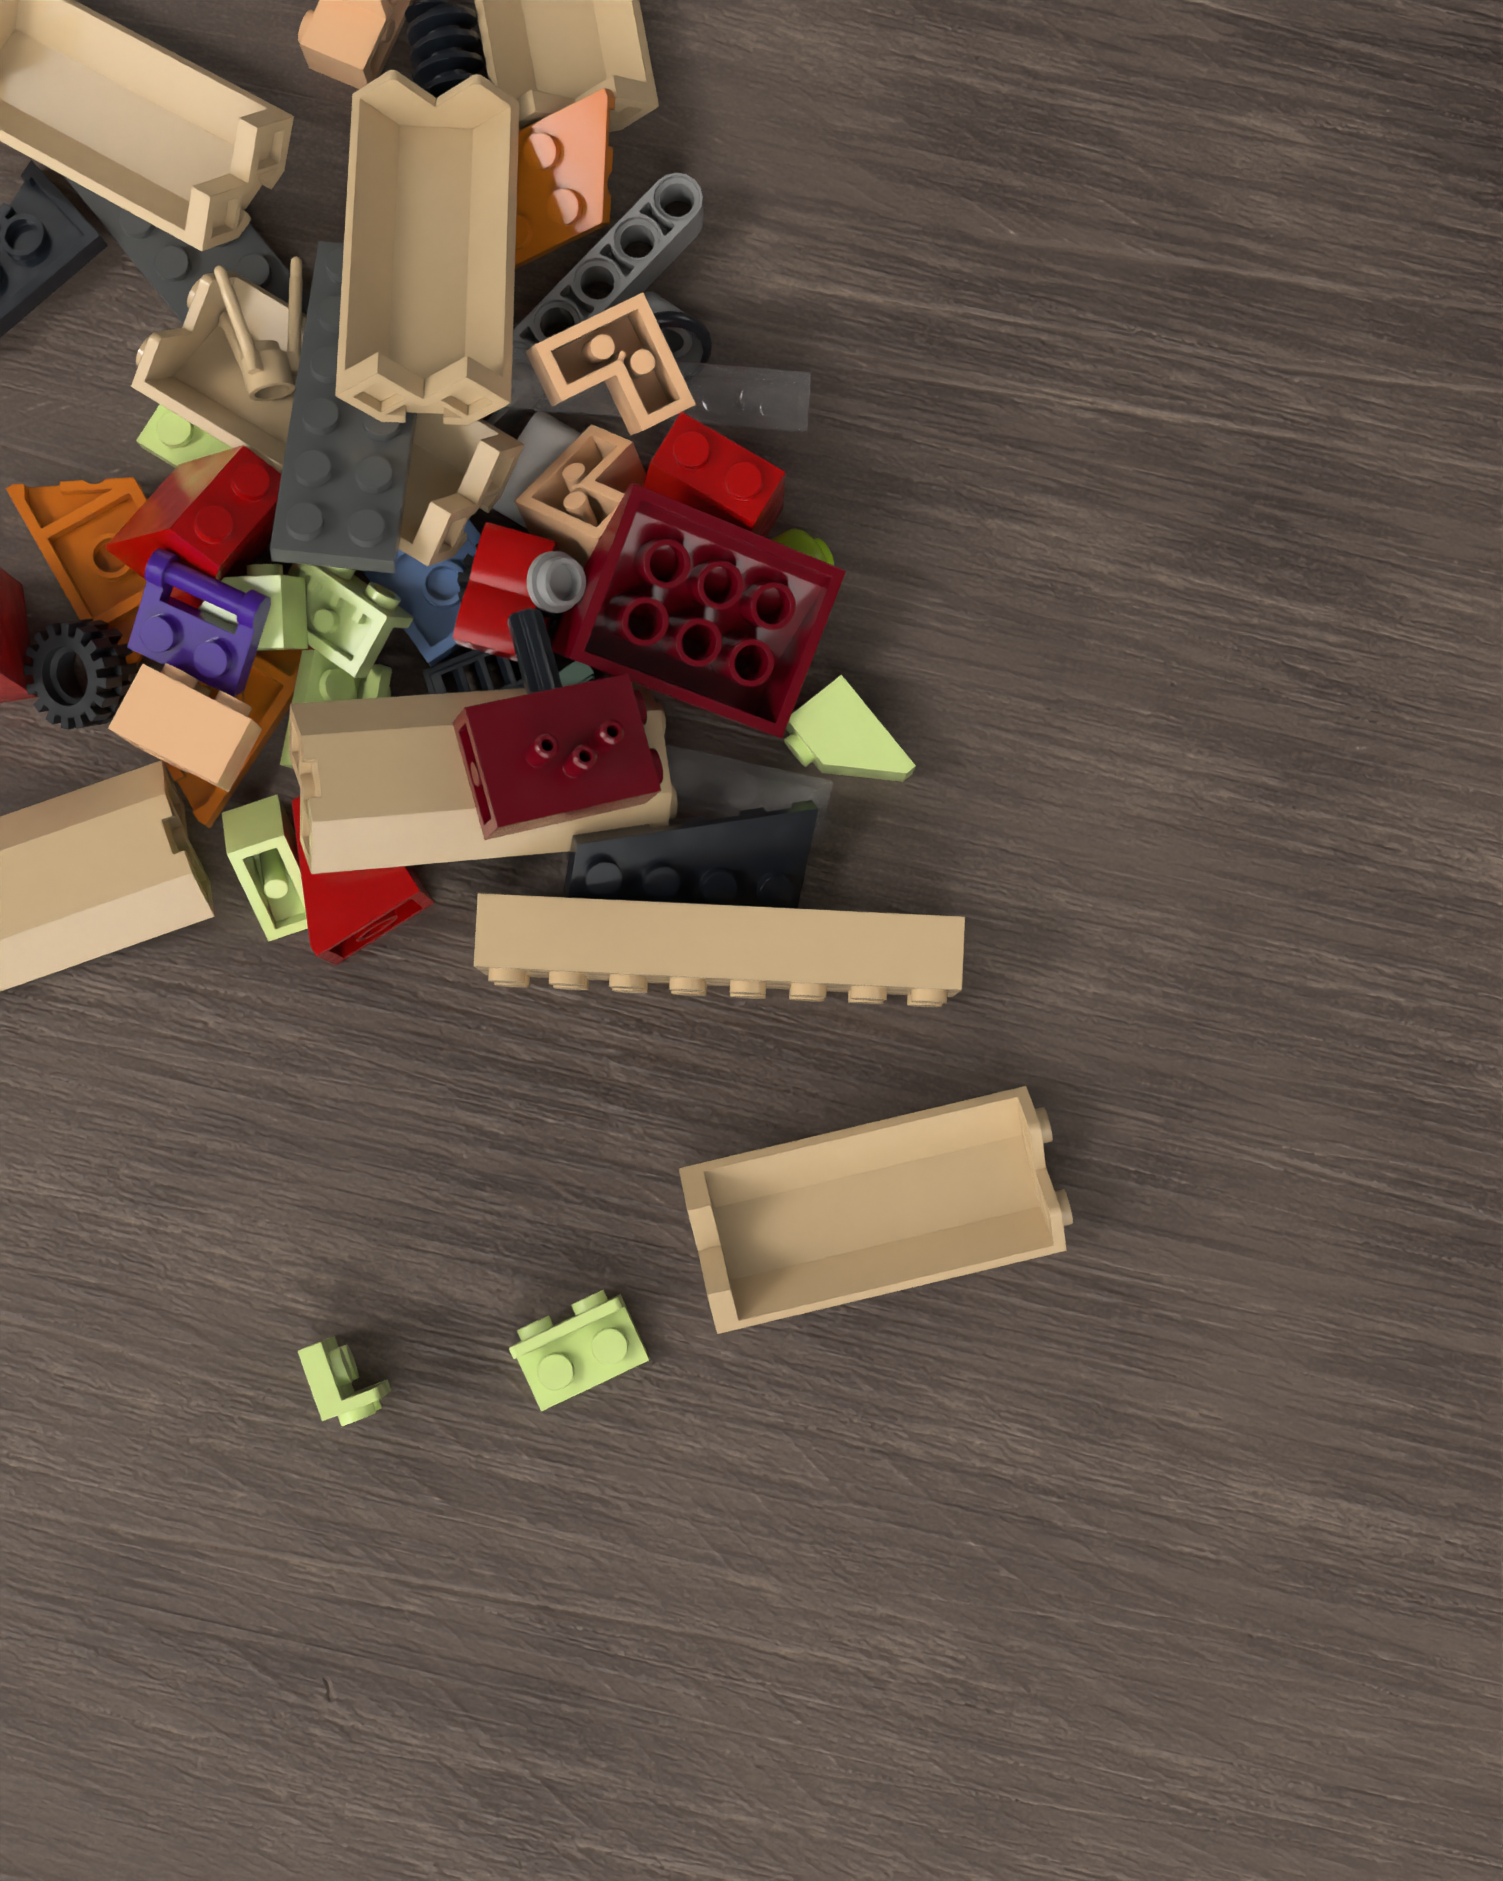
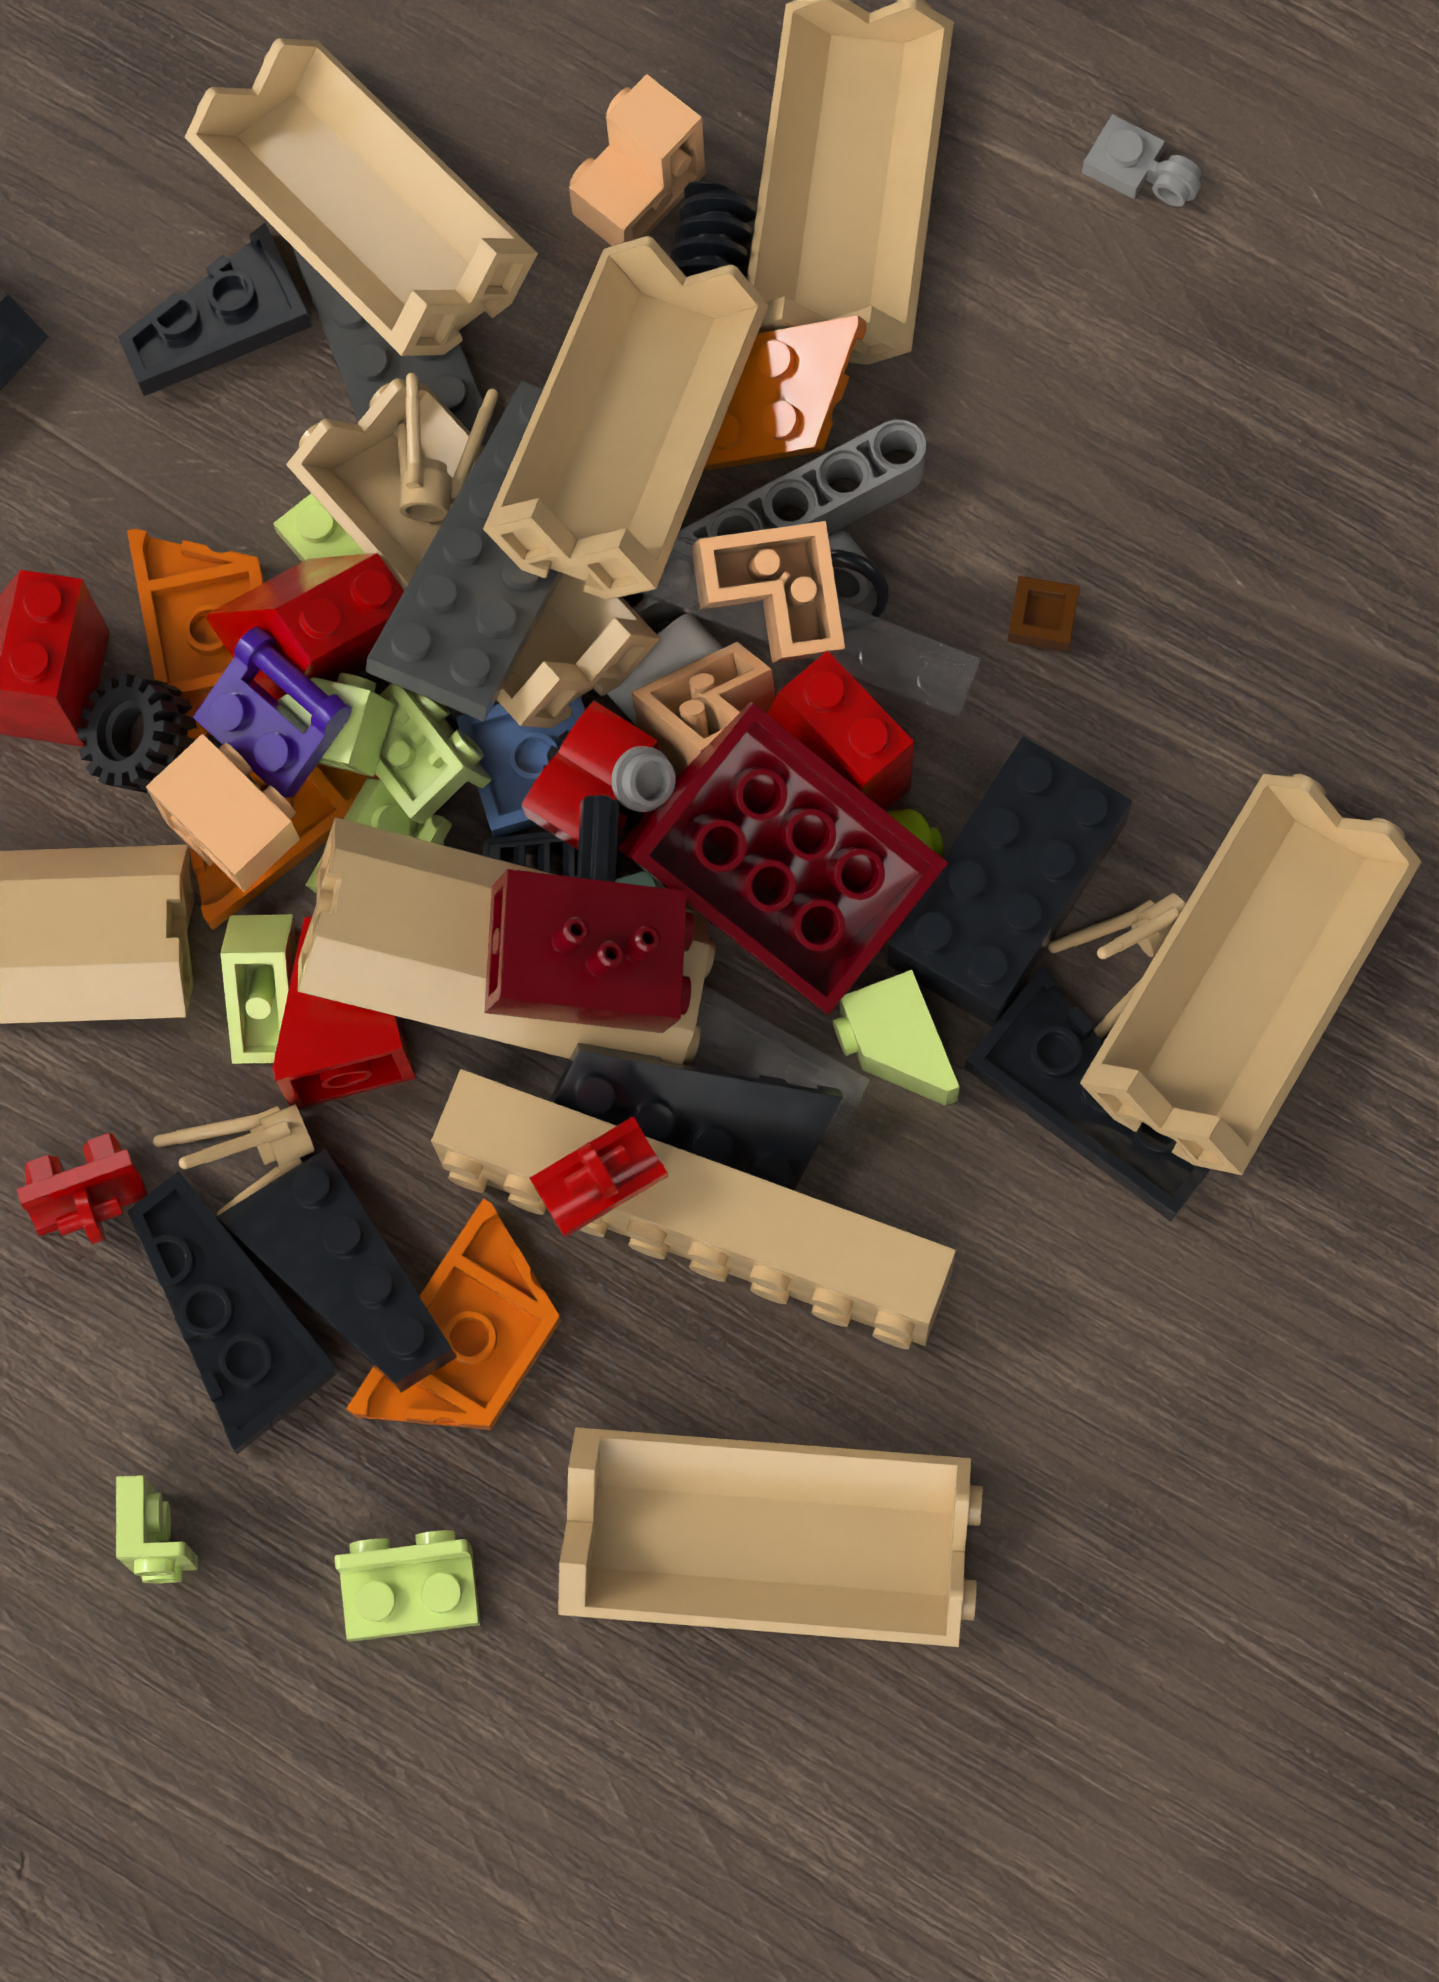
camera: 25 degrees right, 10 degrees down
(179, 1102) = (82, 1194): none -> red hips
(331, 996) = (275, 1133): none -> tan plant
(351, 1171) = (237, 1327): none -> black wing
(419, 1087) = (335, 1260): none -> black wing
(554, 1118) = (492, 1320): none -> orange wing
(635, 955) = (598, 1177): none -> red hips
(851, 314) = (1043, 613): none -> reddish brown plate
(900, 566) = (1009, 882): none -> black brick
(1012, 732) = (1037, 1064): none -> black wing
(1041, 569) = (1150, 927): none -> tan plant
(1137, 584) = (1251, 973): none -> tan panel

